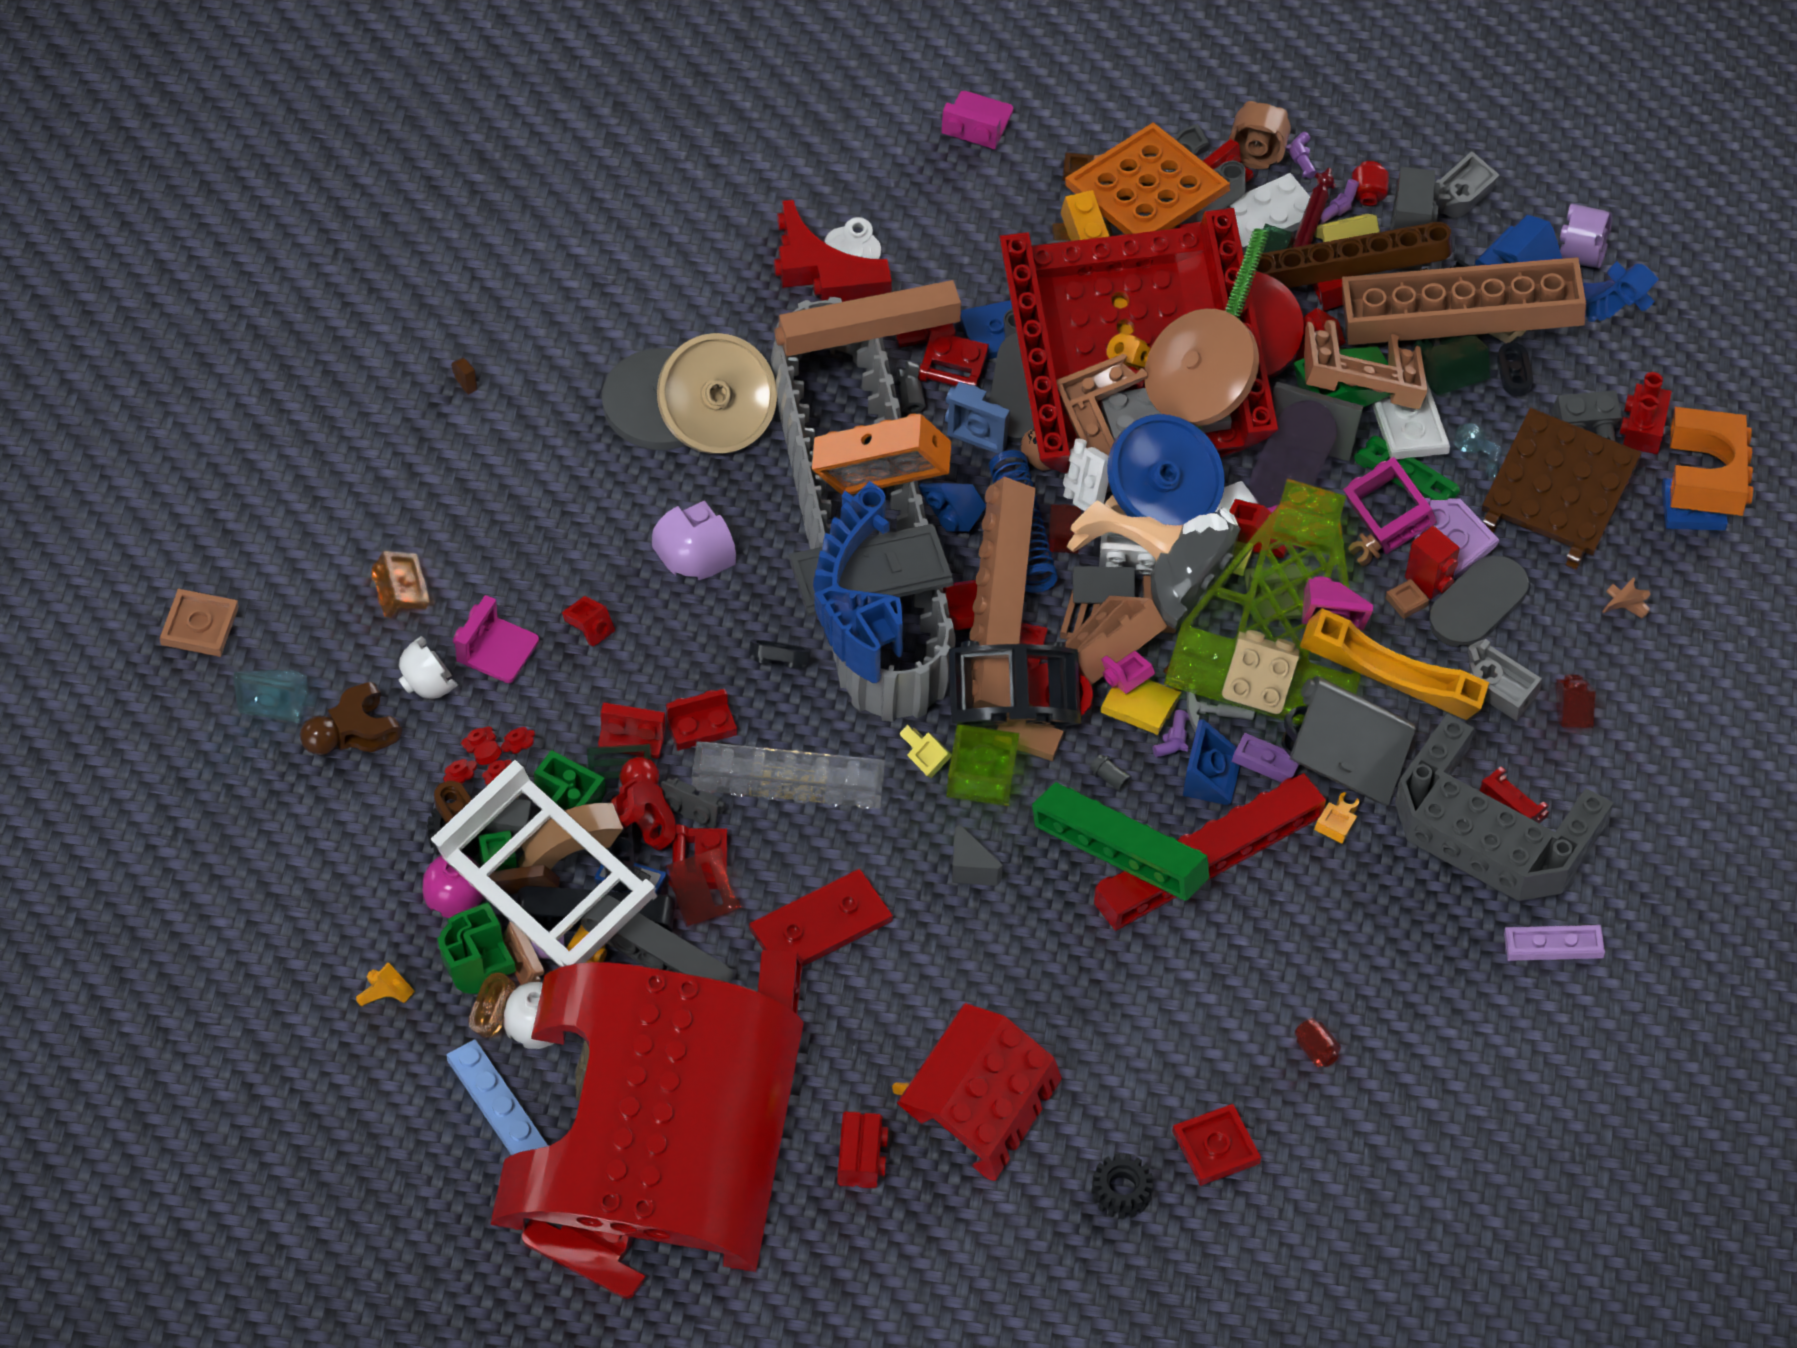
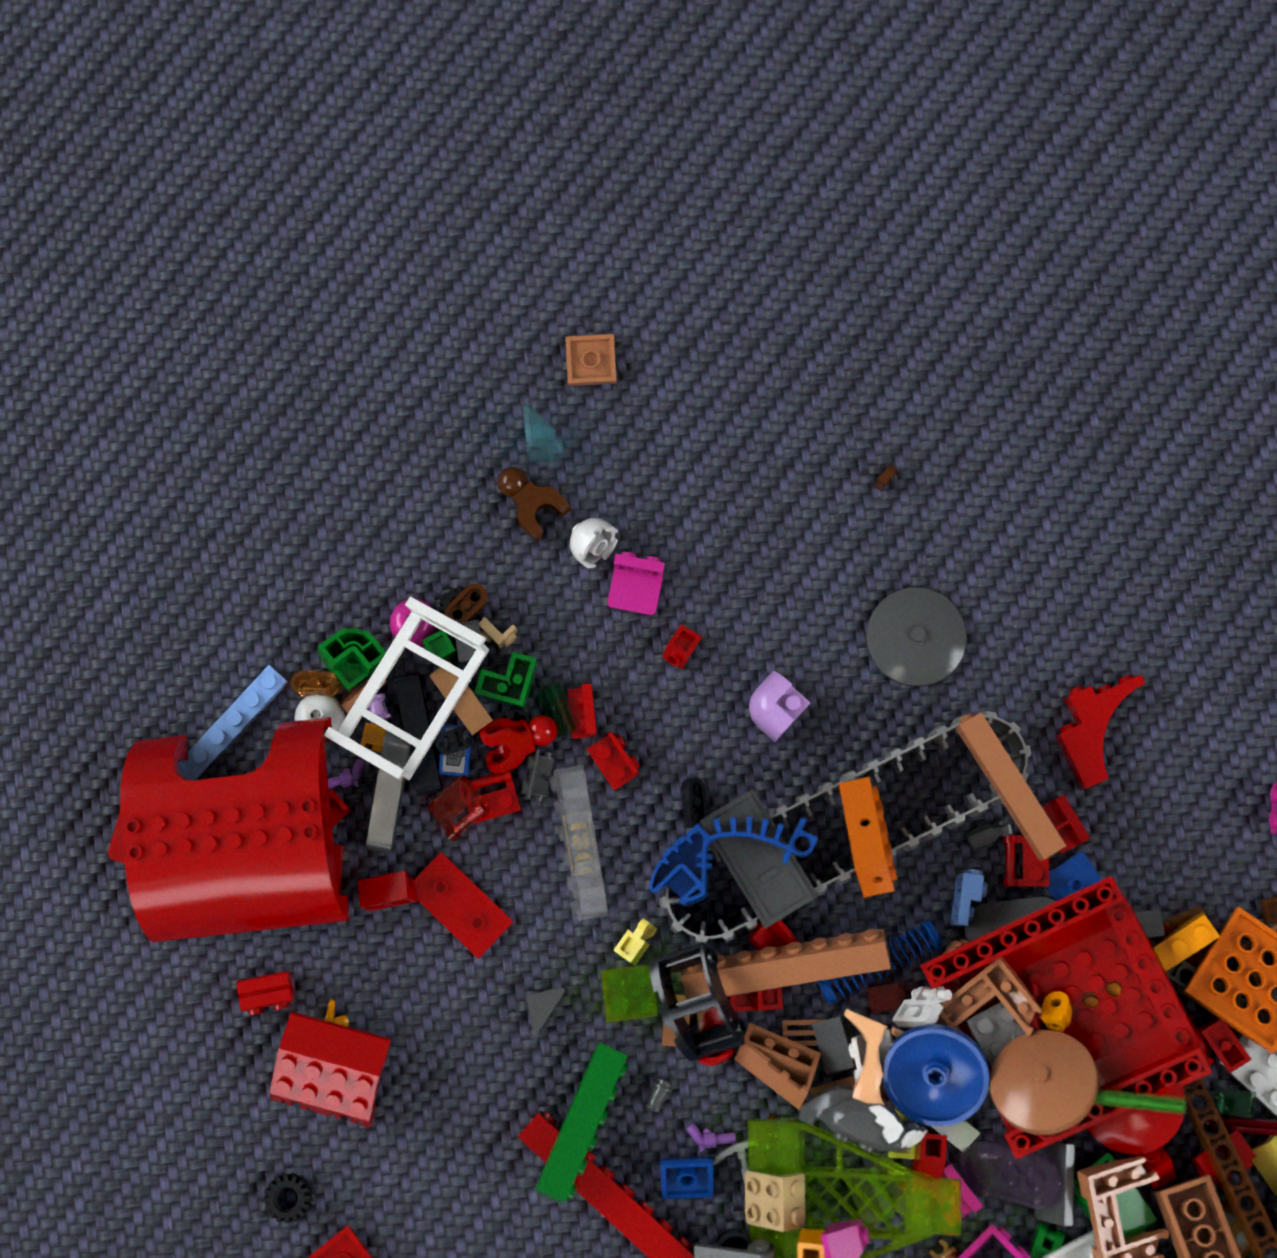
camera: 80 degrees right, 25 degrees up
(385, 984) = (314, 602): light orange piece -> none
(399, 582) = (672, 494): clear orange bracket -> none
(487, 751) = (529, 611): red plant -> none
(513, 879) = (423, 680): reddish brown tile -> none
(716, 393) = (918, 681): tan dish -> none
(853, 243) = (1122, 743): white plate -> none
(954, 504) = (874, 909): blue slope -> none
(1127, 672) = (749, 1087): dark pink bracket -> none
(1143, 706) = (734, 1102): yellow slope -> none
(1264, 758) = (707, 1217): medium lavender plate -> none

